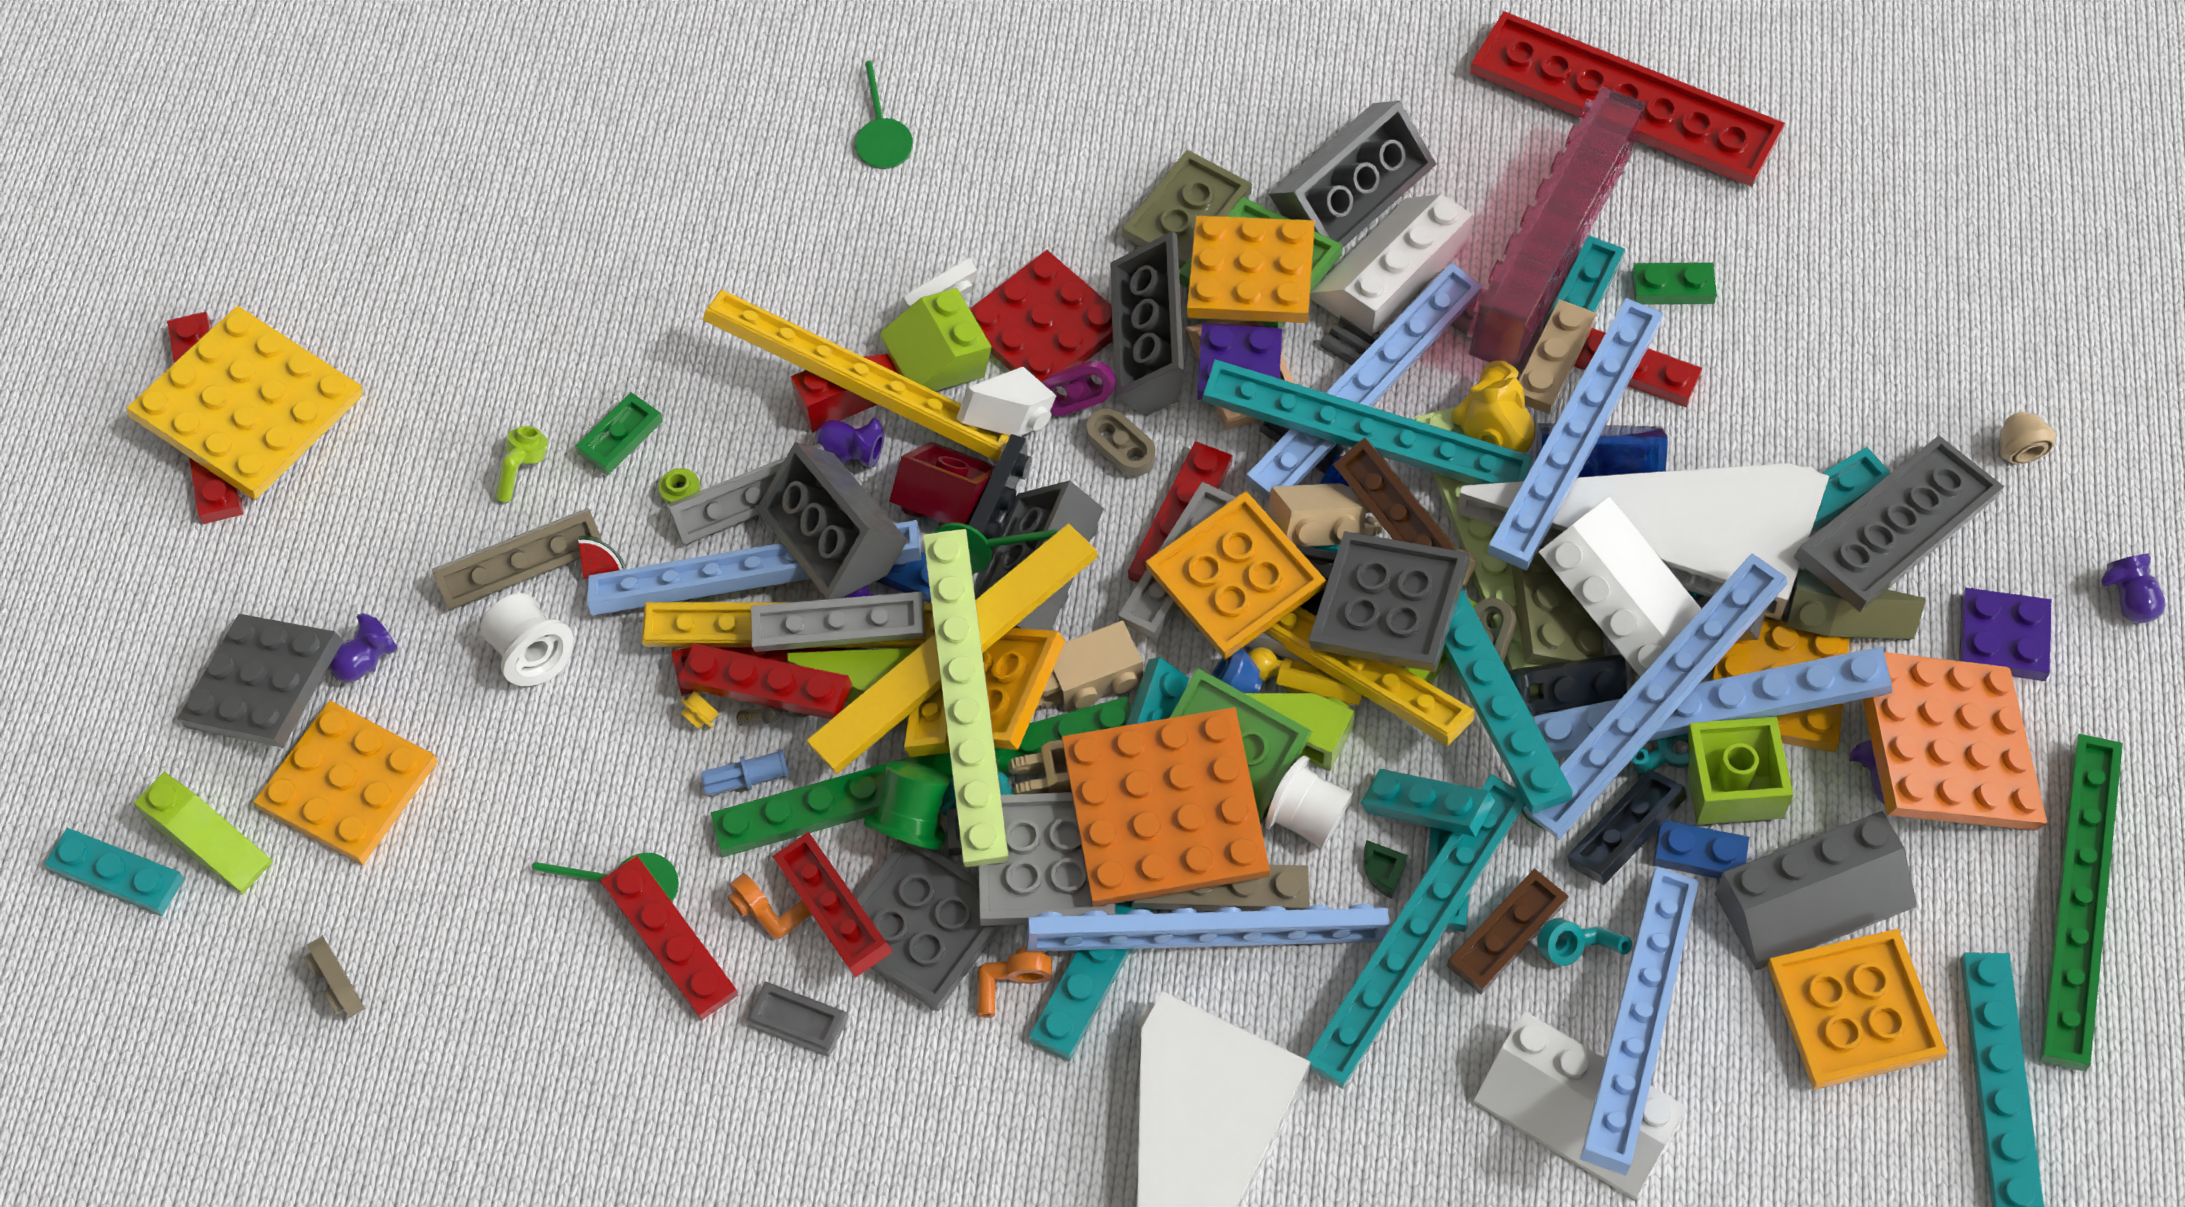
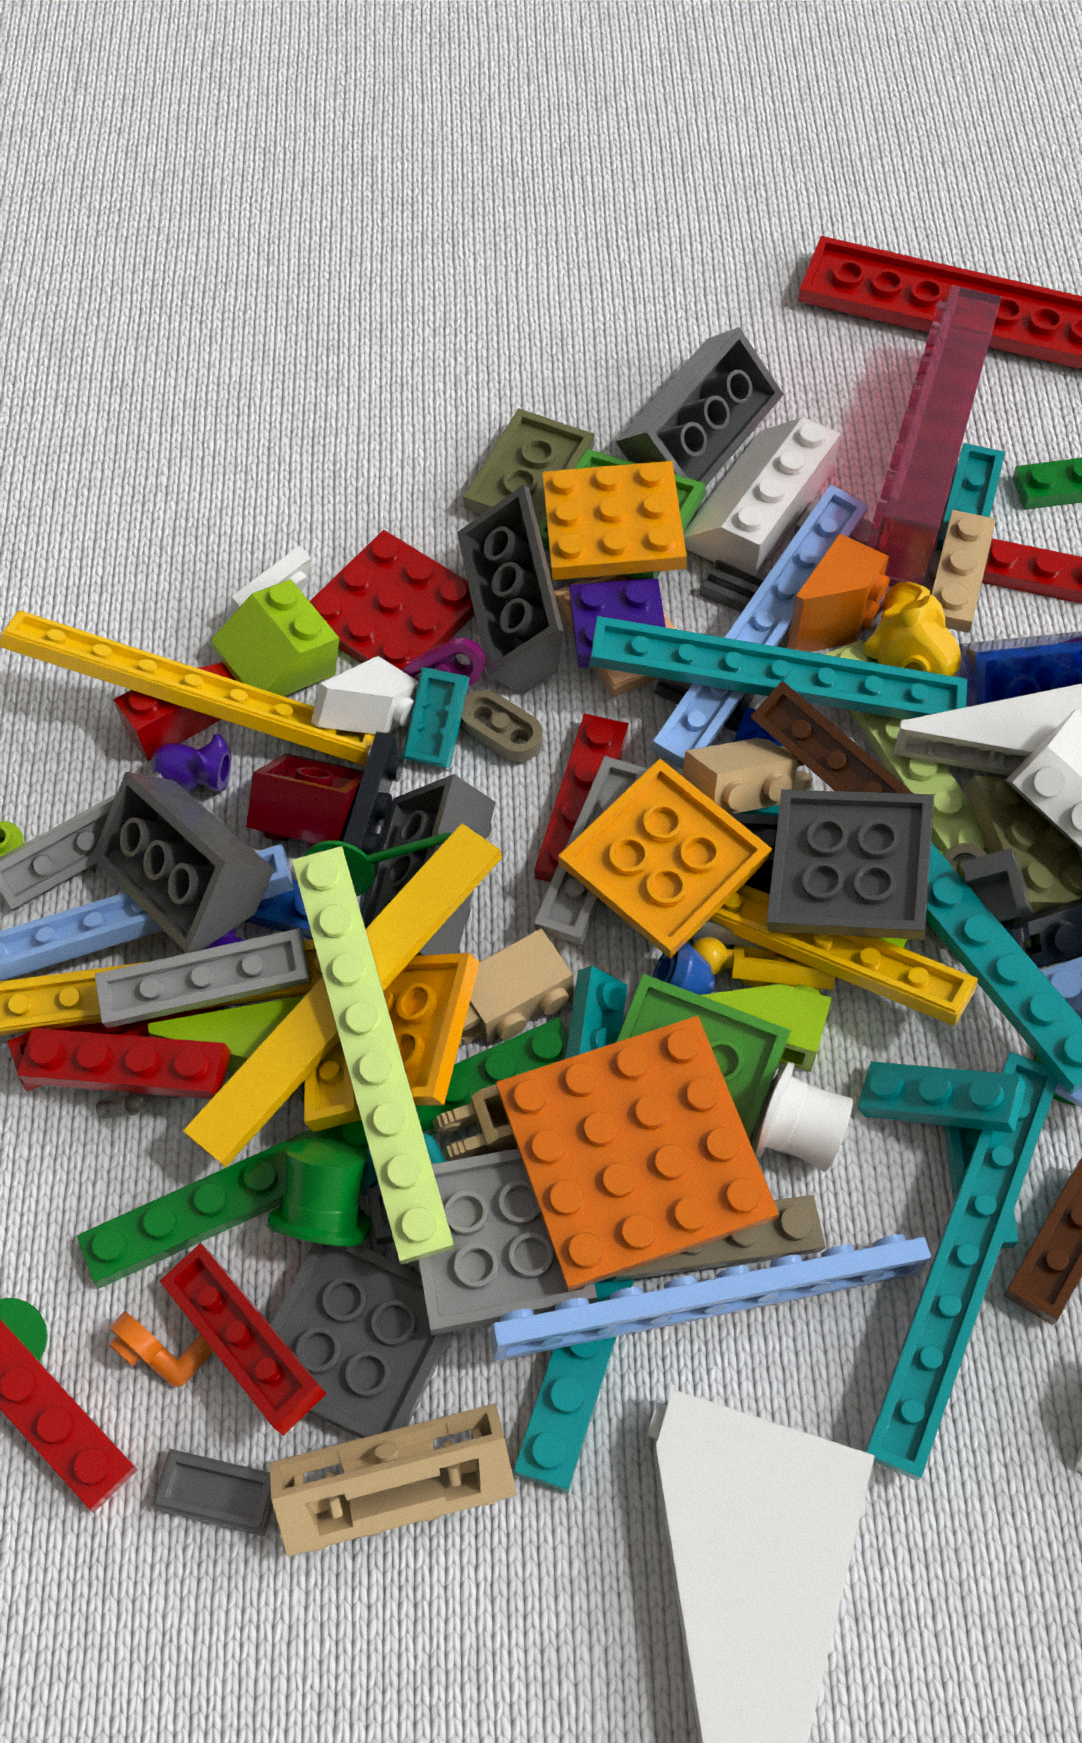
camera: 10 degrees left, 0 degrees up
(698, 711) = (49, 1108): yellow plate -> none
(744, 773) = (113, 1178): medium blue axle -> none
(883, 141) = (188, 441): green piece -> none
(934, 1025) = (391, 1480): none -> tan brick
(1021, 967) = (490, 1380): orange plate -> none
(1065, 428) = (436, 717): none -> teal plate
(1383, 867) = (899, 1181): dark green tile -> none
(1436, 368) = (839, 597): none -> orange slope
(1513, 636) = (999, 884): none -> dark grey panel
(1575, 434) = (1015, 652): light blue plate -> none

